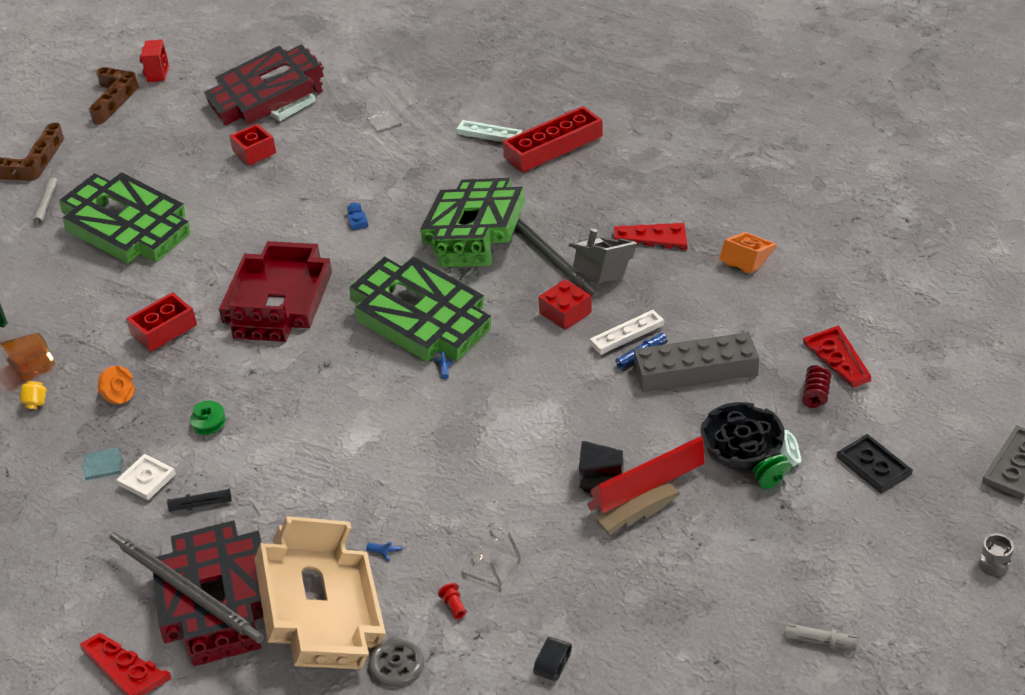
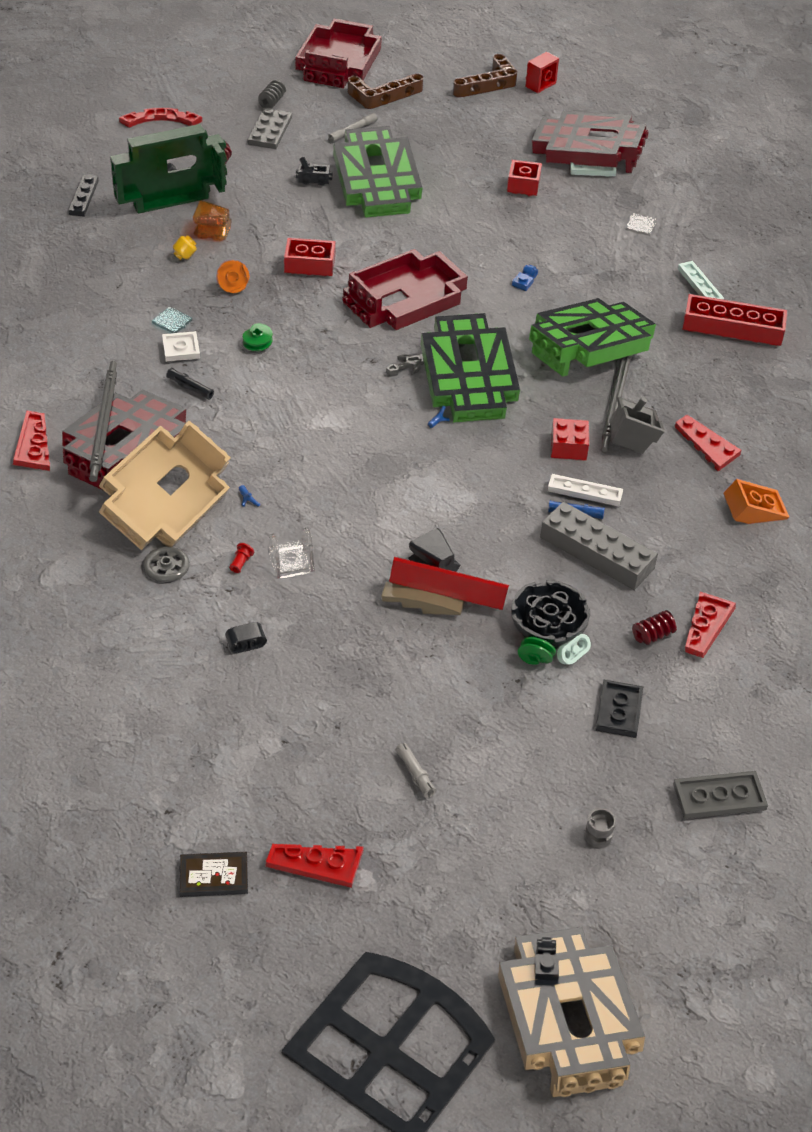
camera: 40 degrees right, 5 degrees up
(65, 256) = (313, 173): none -> black brick
(360, 341) = (410, 361): none -> dark grey sword

